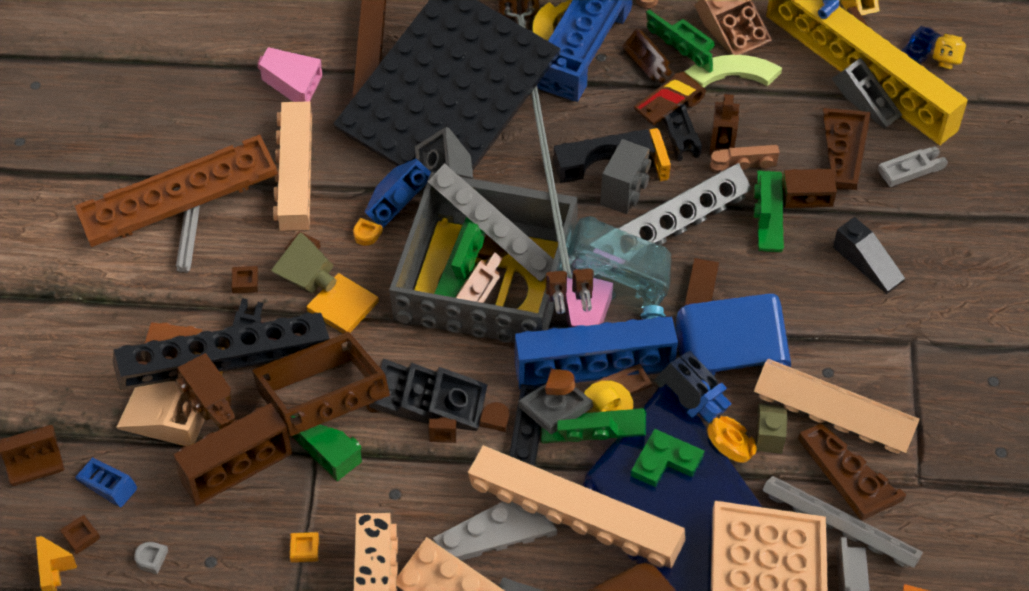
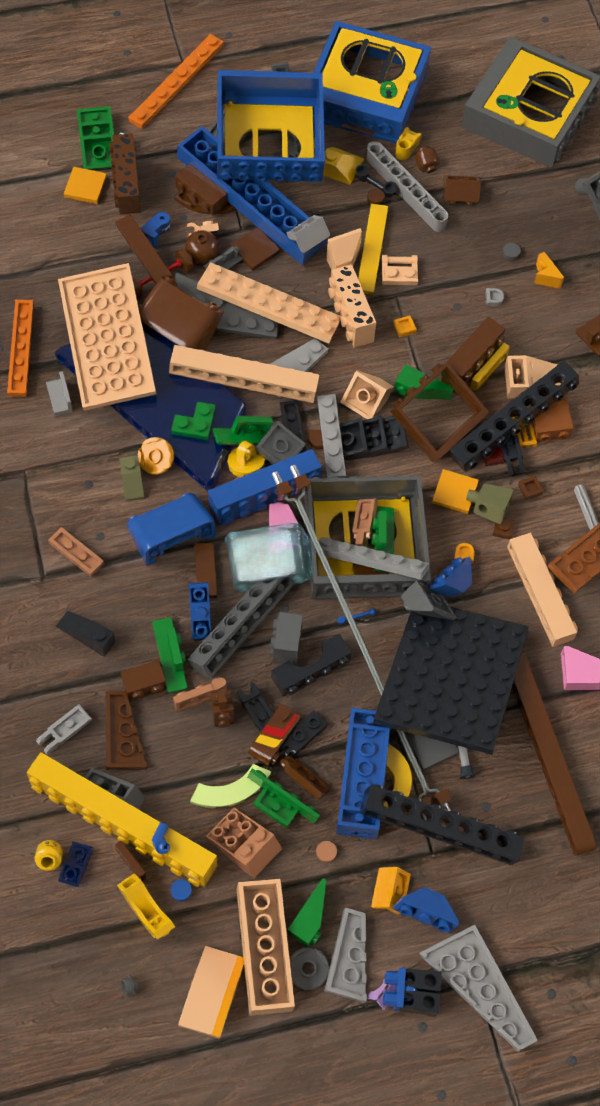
camera: 160 degrees right, 10 degrees up
(80, 534) = (542, 295): reddish brown plate -> none
(120, 490) = (541, 324): blue slope -> none
(206, 389) = (506, 375): reddish brown hinge -> none
(401, 446) = (366, 394): none -> light nougat slope
(442, 430) = (348, 414): reddish brown plate -> none
(479, 404) = (331, 436): none -> light grey plate
(560, 382) = (280, 453): dark orange tile -> none
(623, 104) = (303, 734): none -> black hinge
(661, 158) = (268, 678): light orange tile -> none
(695, 387) = (189, 474): black hips -> none
(721, 238) = (200, 610): none -> blue slope
(836, 405) = (89, 495): light nougat brick -> none
(850, 526) = (71, 424): light grey plate -> none
(855, 481) = (70, 458): reddish brown wing -> none
(865, 352) = (76, 552): none -> nougat plate

